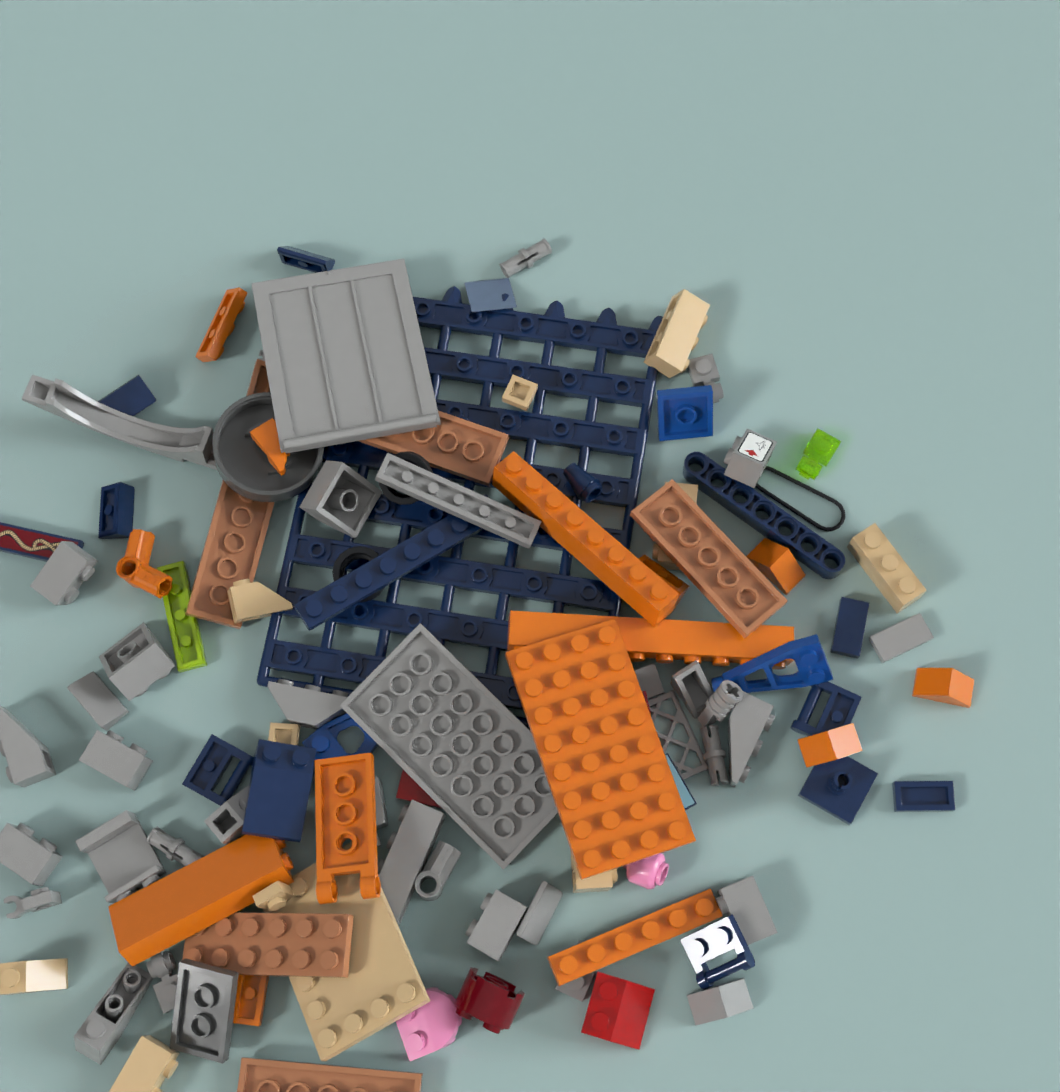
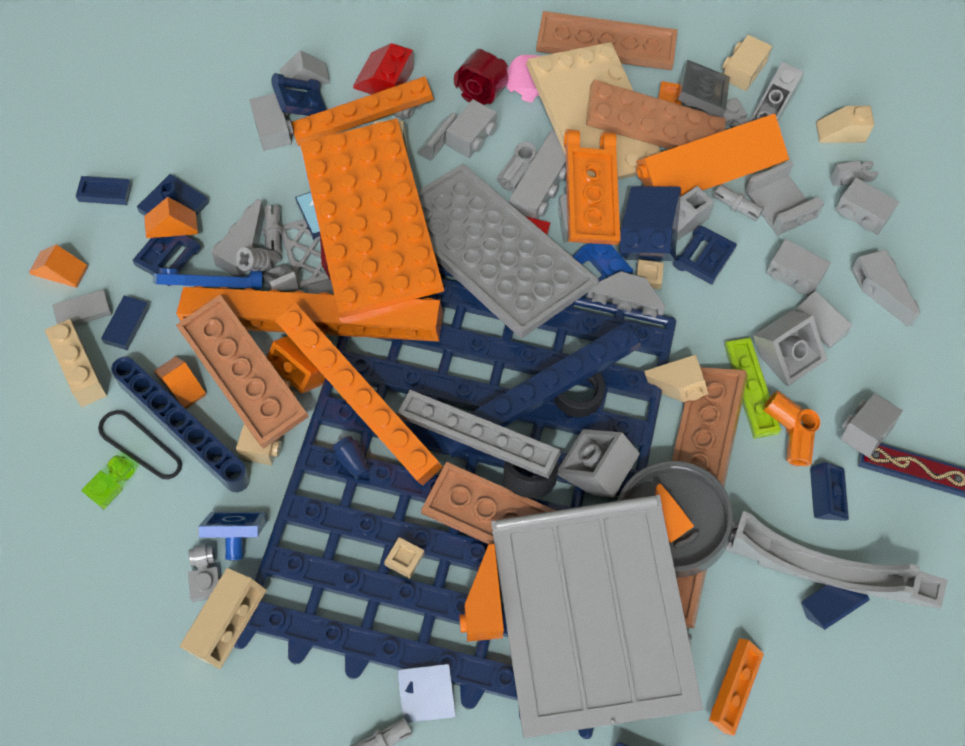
camera: 175 degrees right, 10 degrees down
(273, 896) = (652, 146): tan plate -> none
(444, 358) = (483, 604): none -> orange slope
(749, 457) = (177, 470): light grey brick -> none

